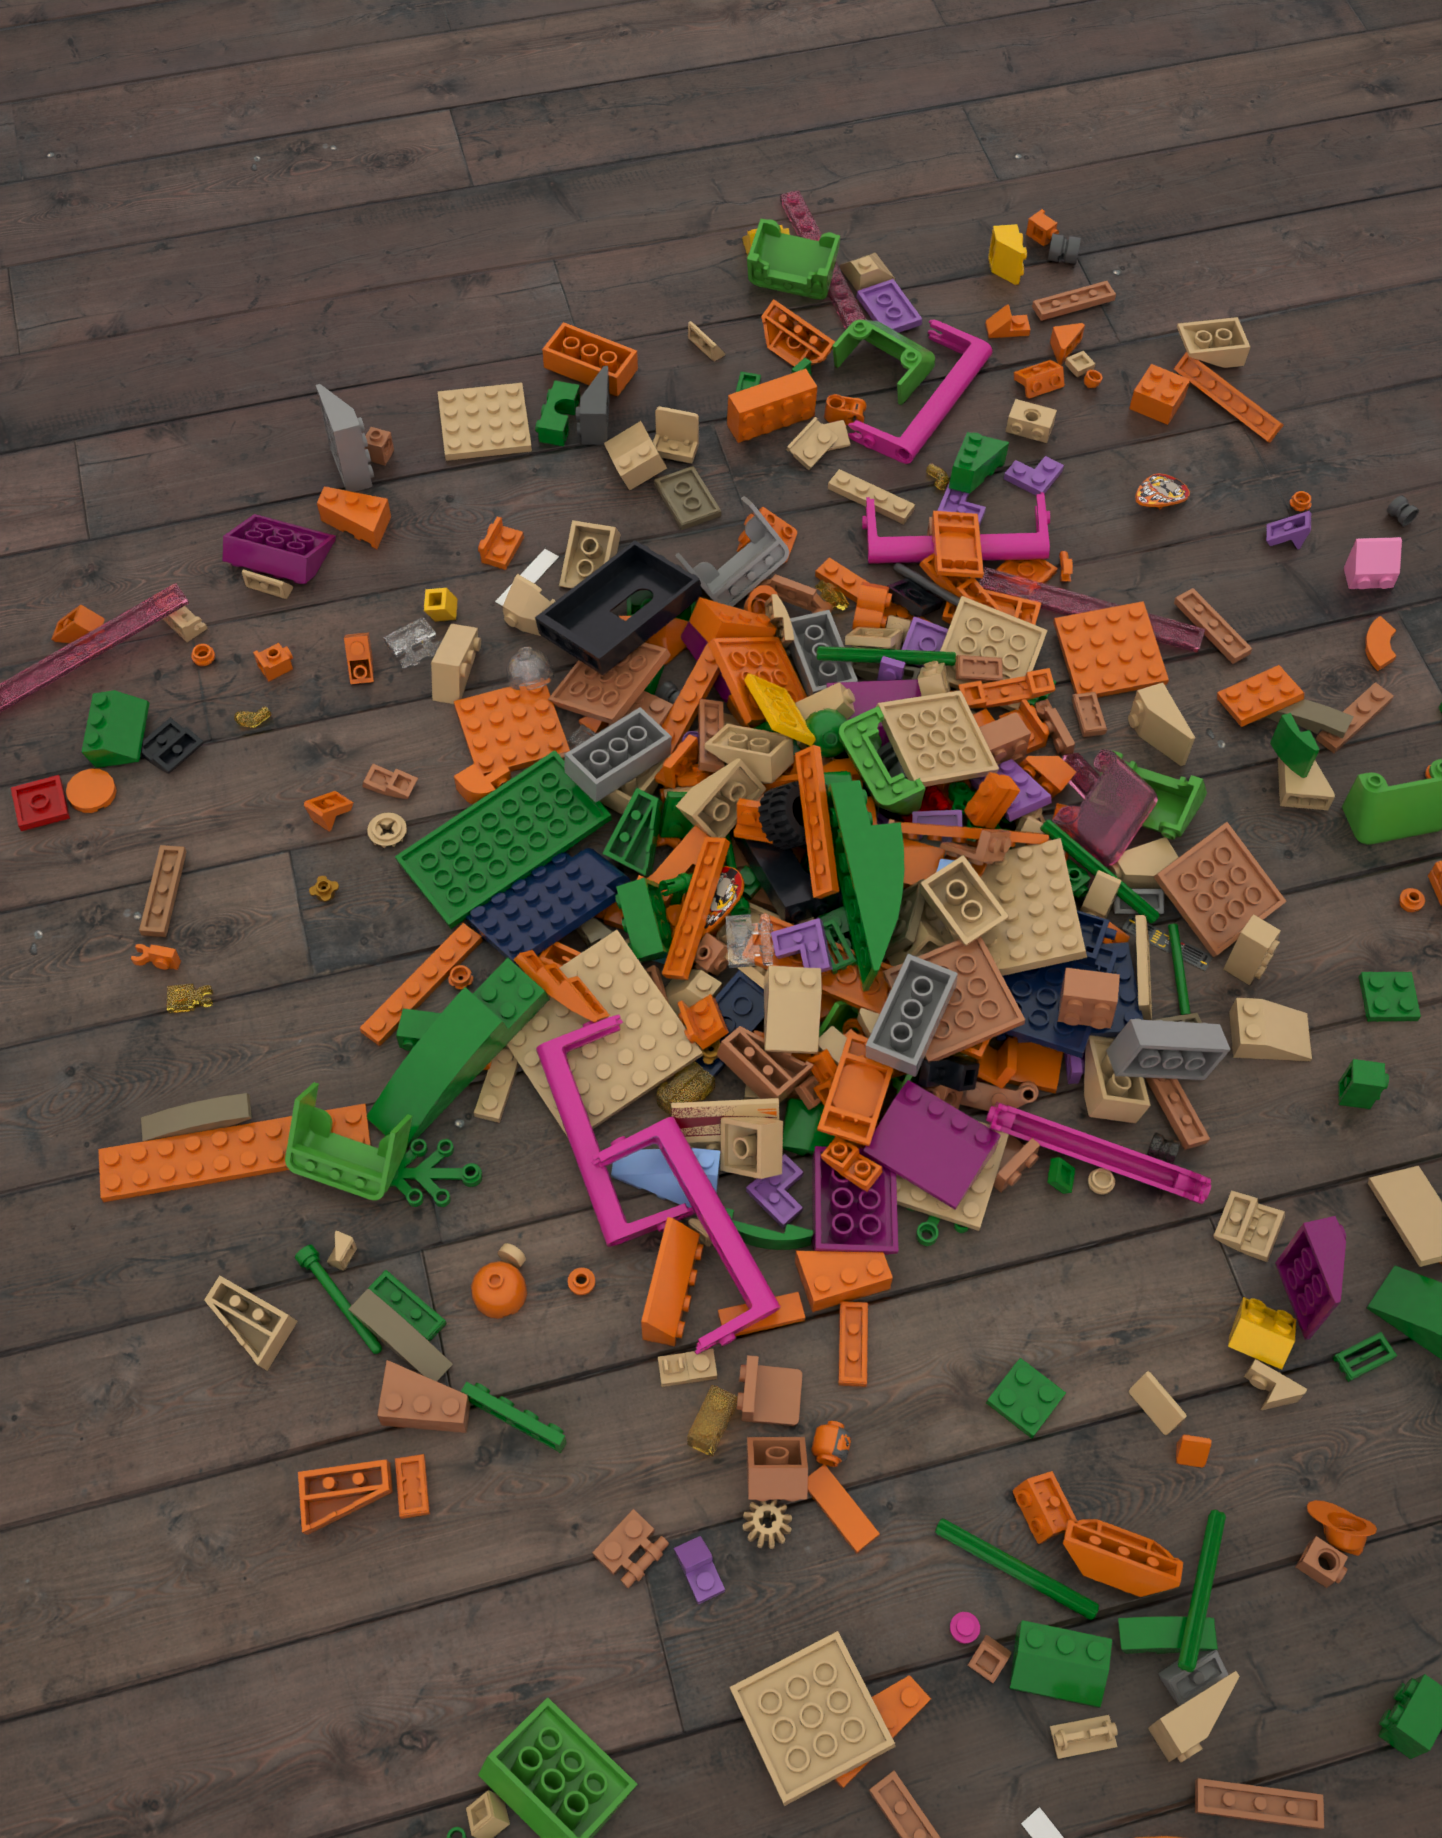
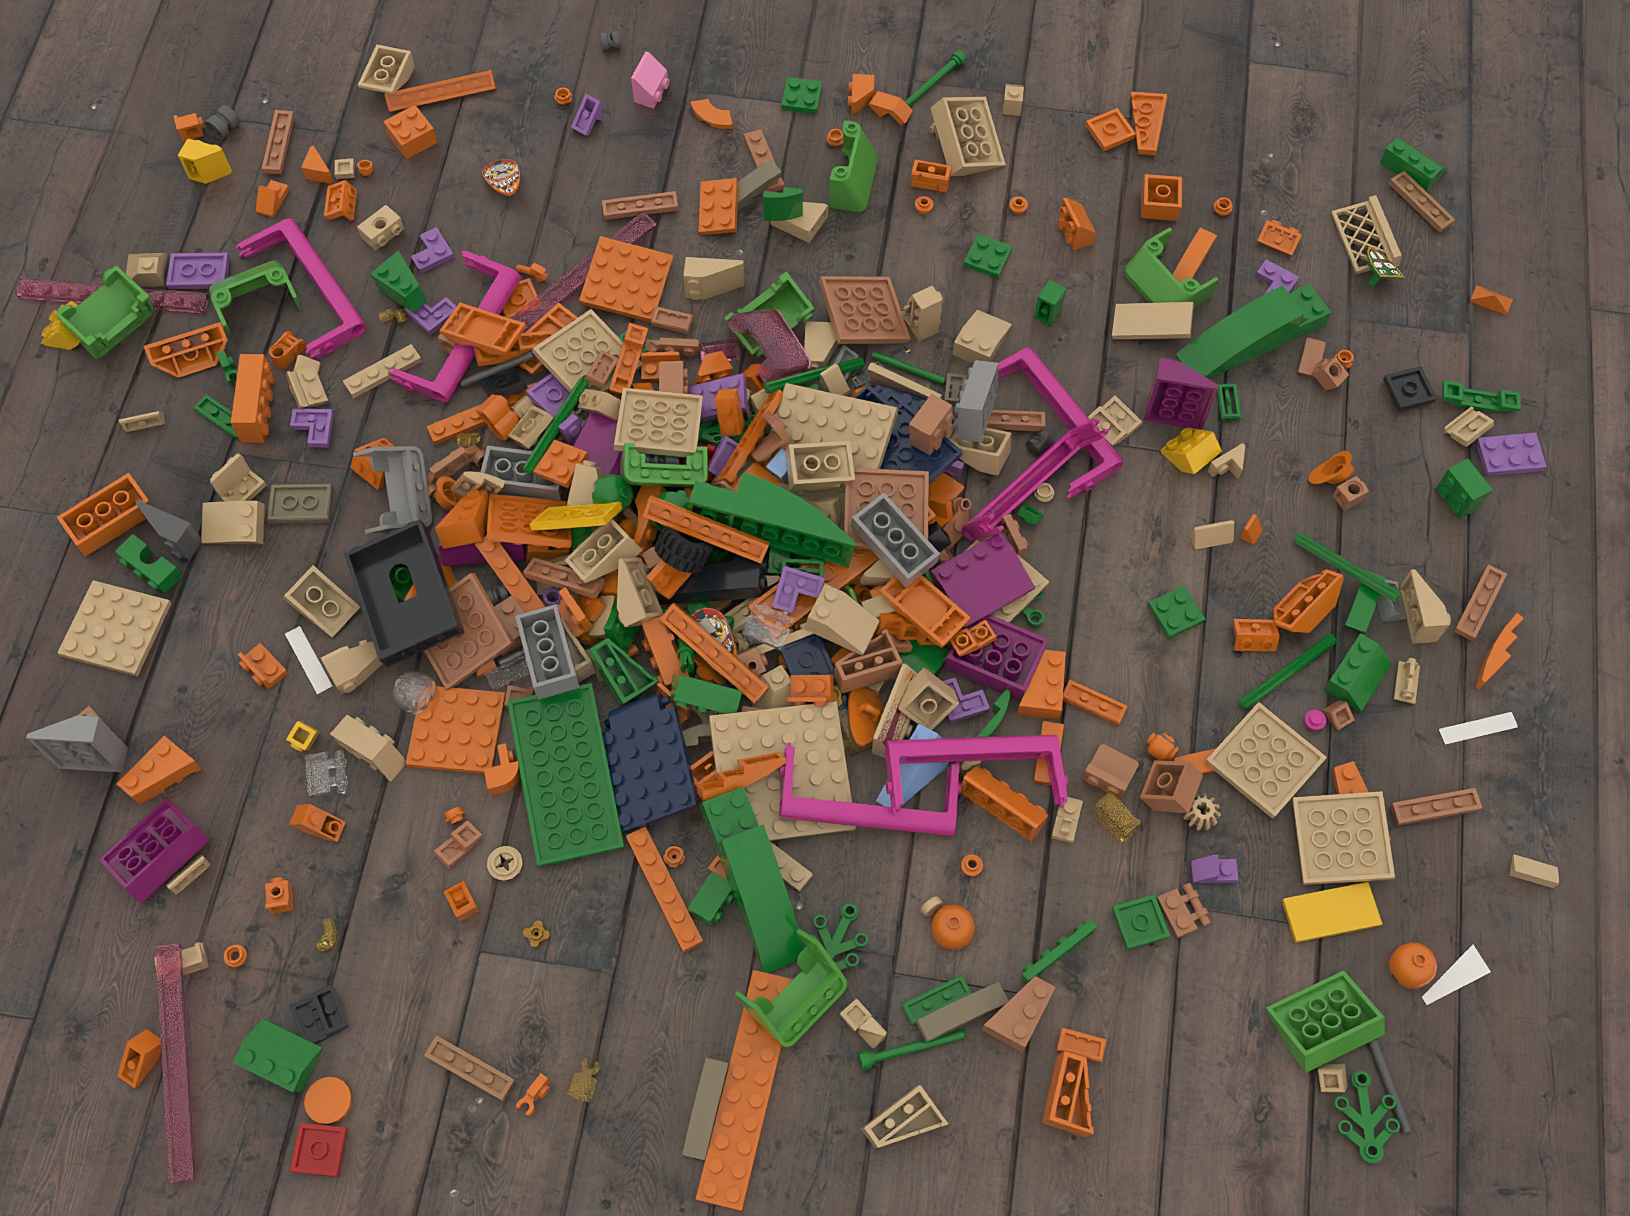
camera: 65 degrees left, 5 degrees up
(355, 1225) = (855, 1015): none -> tan plate
(418, 765) = (454, 815): none -> orange plate
(592, 1500) = (1140, 922): none -> green plate
(703, 1085) = (864, 714): none -> orange shield
(709, 1741) = (1331, 912): none -> yellow tile
(780, 470) = (317, 422): none -> medium lavender plate
(848, 672) = (560, 463): none -> orange plate
(876, 1581) = (1265, 760): none -> tan plate
(1192, 1234) = (1068, 411): none -> dark pink piece

